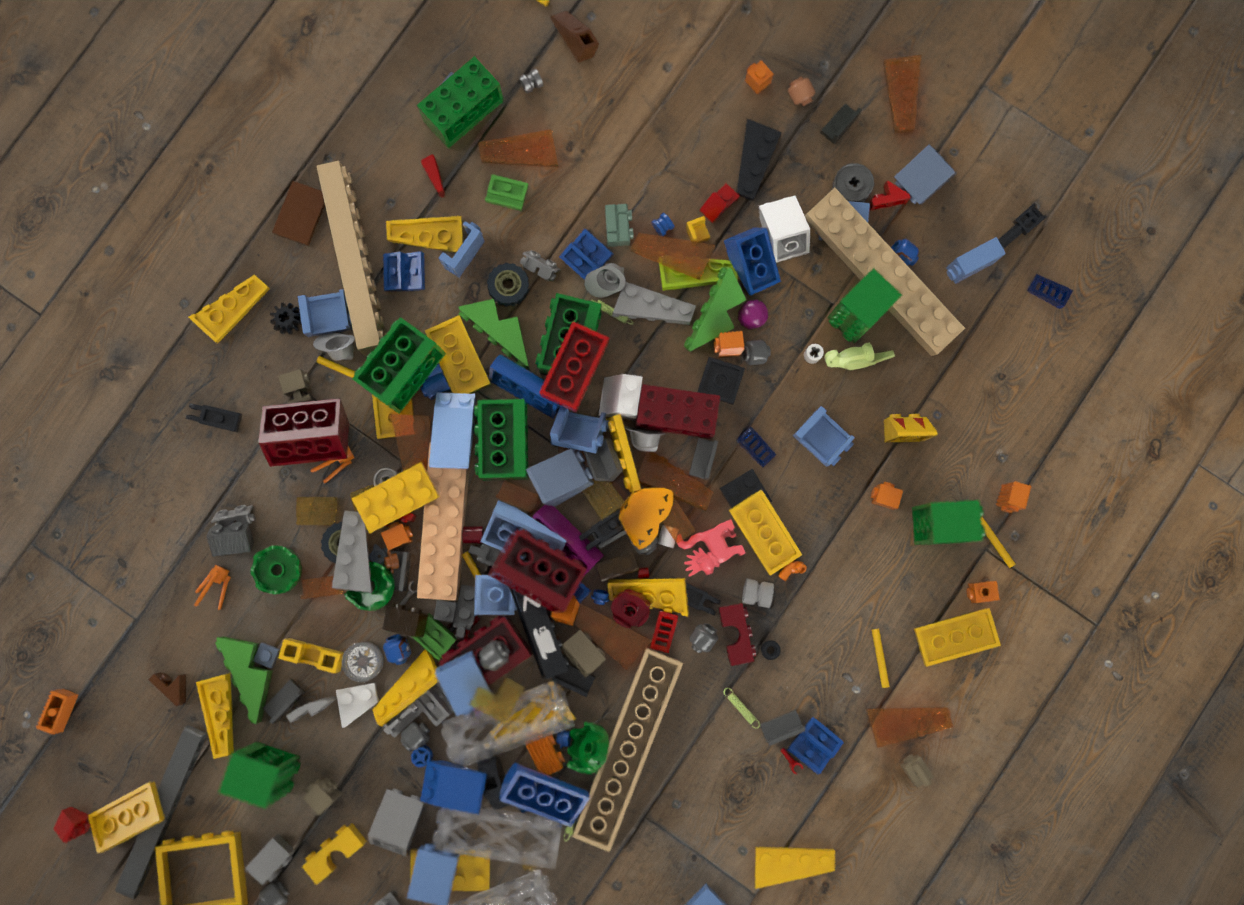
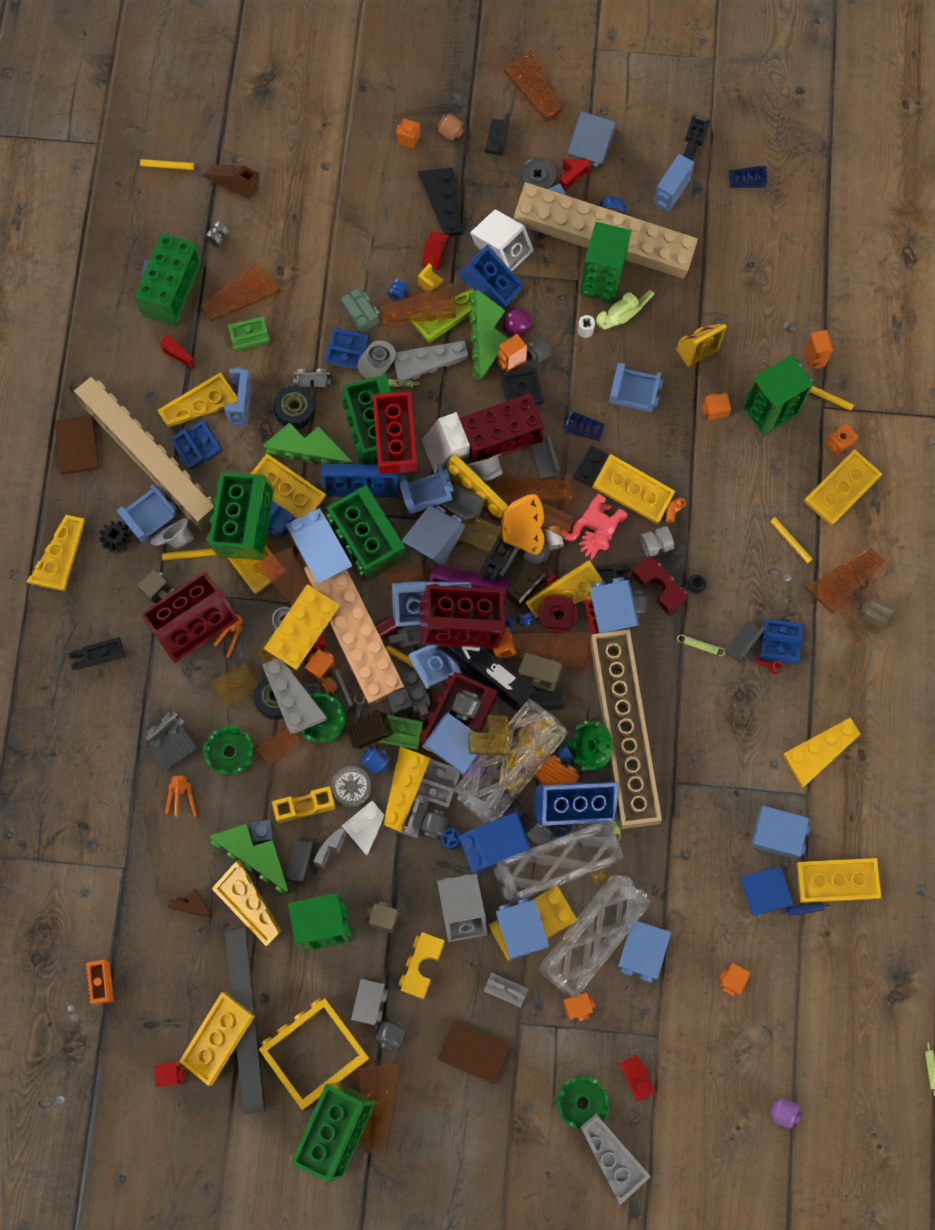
camera: 30 degrees left, 10 degrees down
(682, 634) = (614, 605): none -> medium blue brick

